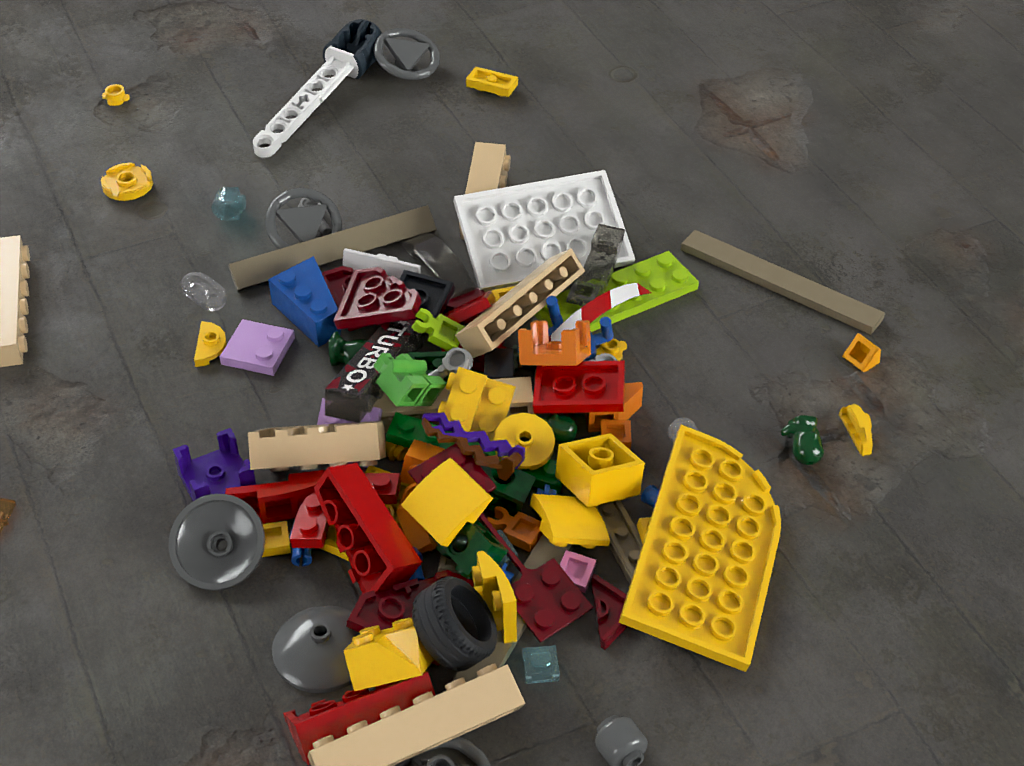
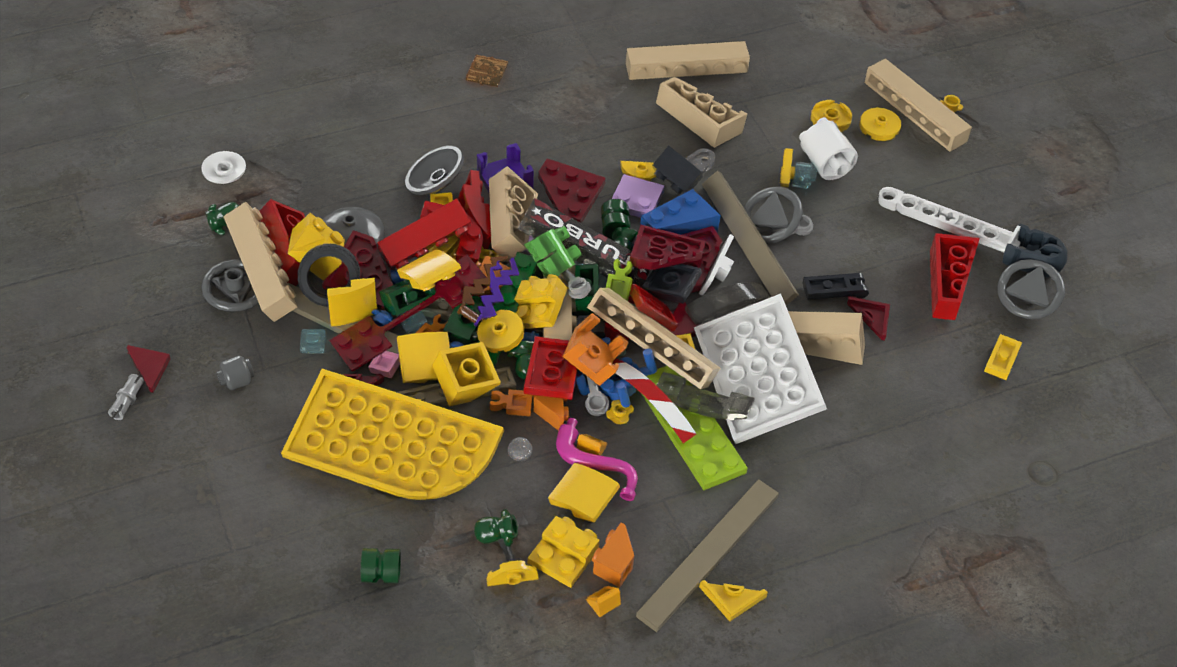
camera: 90 degrees right, 5 degrees up
(114, 116) = (918, 105): none -> tan brick
(115, 283) = (700, 112): none -> tan wedge
(141, 147) = (880, 124): none -> yellow plate
(199, 174) = (828, 149): none -> white cylinder
(223, 215) = (787, 170): none -> yellow plate
(228, 298) = (677, 171): none -> black brick
(244, 408) = (570, 188): none -> dark red plate
(308, 356) = (614, 215): none -> dark green wheel
(391, 102) = (950, 268): none -> red wedge
(405, 186) = (835, 286): none -> black plate
(440, 163) = (873, 314): none -> dark red tile
(663, 372) = (591, 444): none -> light orange slope
(681, 387) = (569, 453): none -> dark pink animal
(733, 372) = (584, 492): none -> yellow slope
(810, 342) = (616, 557): none -> orange slope
(812, 387) = (564, 550): none -> yellow plate
(829, 264) = (732, 599): none -> yellow tile
(890, 537) = (380, 565): none -> dark green wheel

